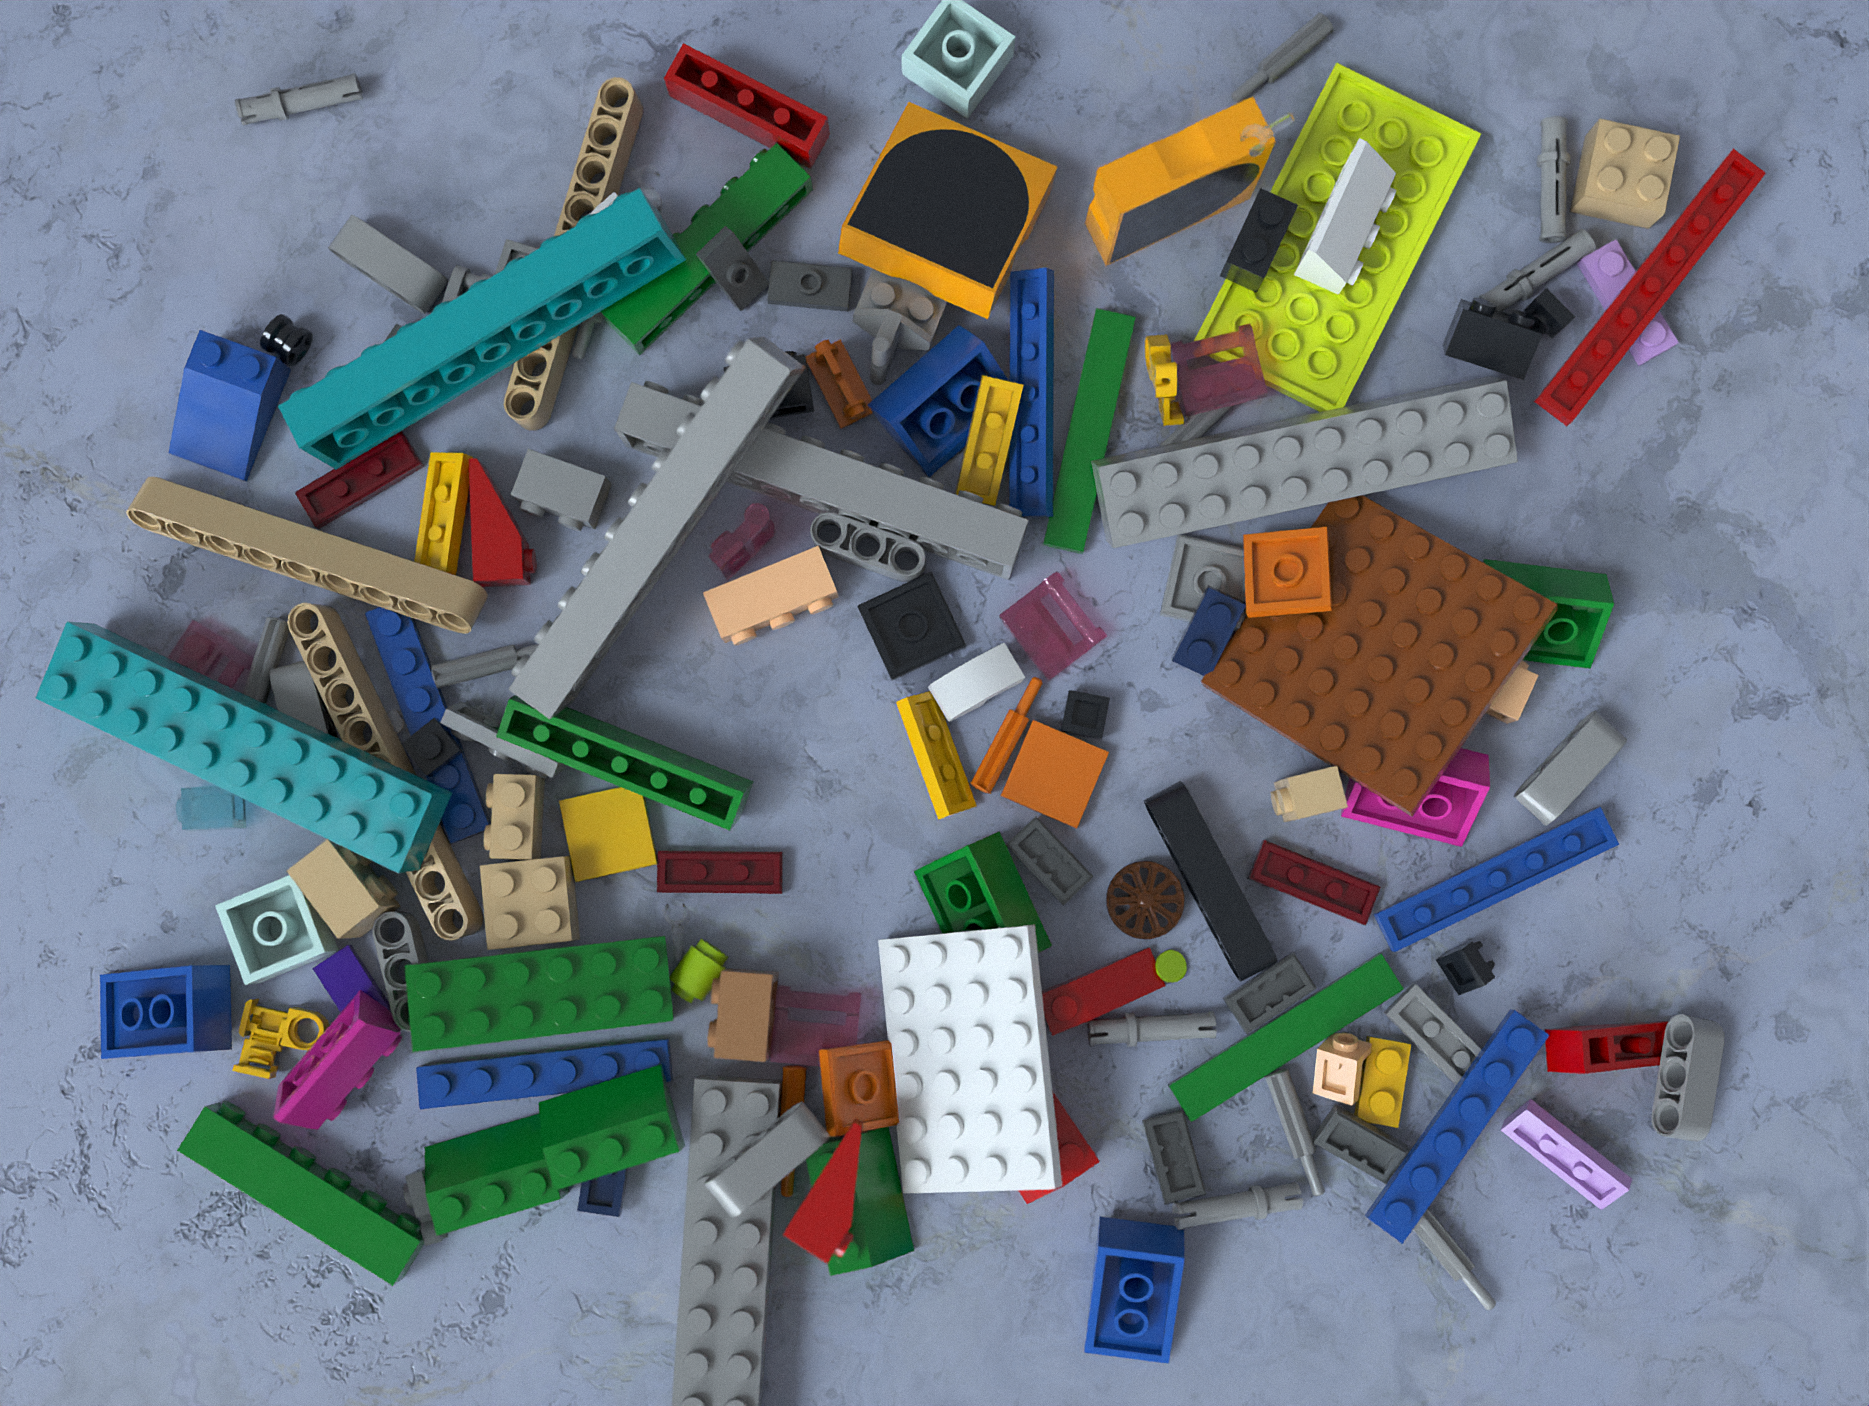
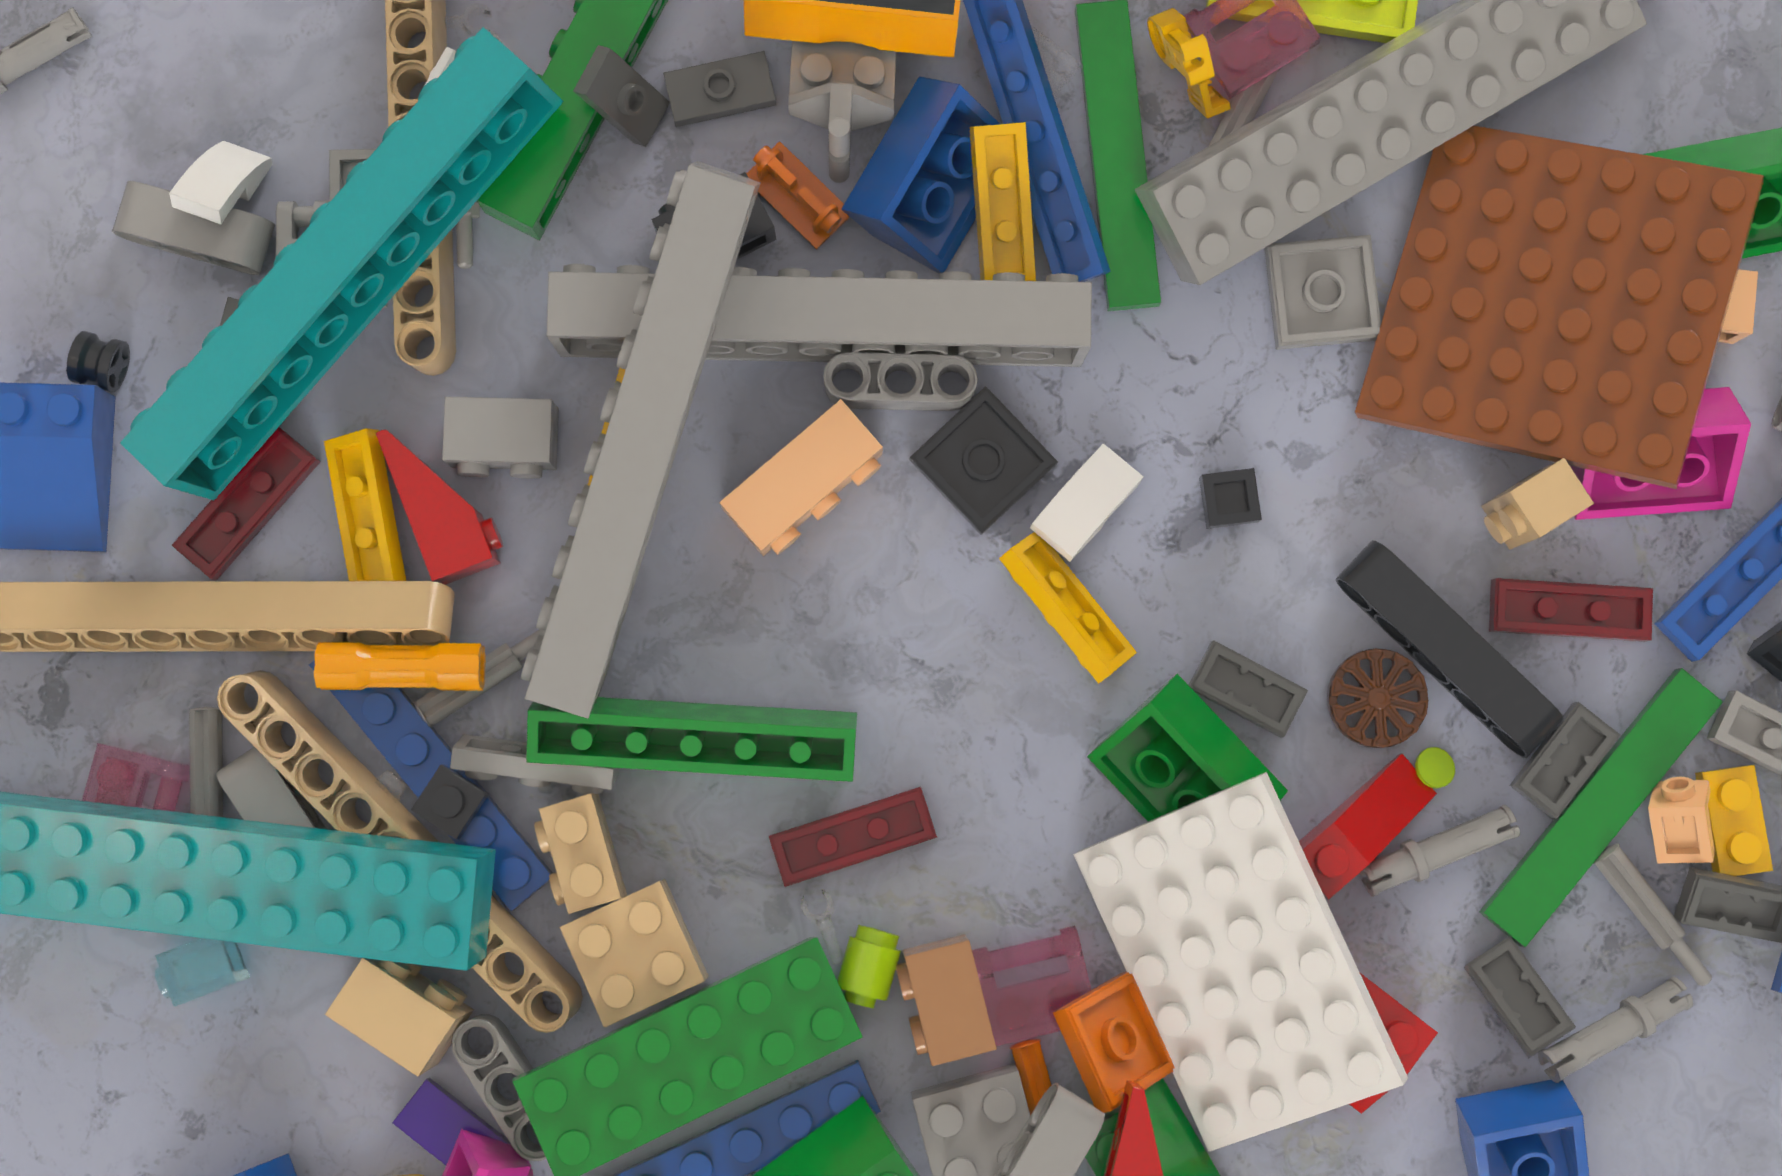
camera: 25 degrees left, 0 degrees up
(274, 931) = (331, 1092): light aqua brick -> none
(405, 628) = (400, 666): none -> light orange axle
(417, 235) = (219, 180): none -> white slope
(608, 833) = (699, 834): yellow tile -> none
(736, 549) = (740, 436): clear pink plate -> none
(1005, 740) = (1144, 562): orange axle -> none
(1042, 635) = (1144, 419): clear pink plate -> none
(1054, 774) = (1217, 582): orange tile -> none
(1208, 631) = (1344, 348): dark blue plate -> none
(1287, 572) = (1419, 245): orange plate -> none

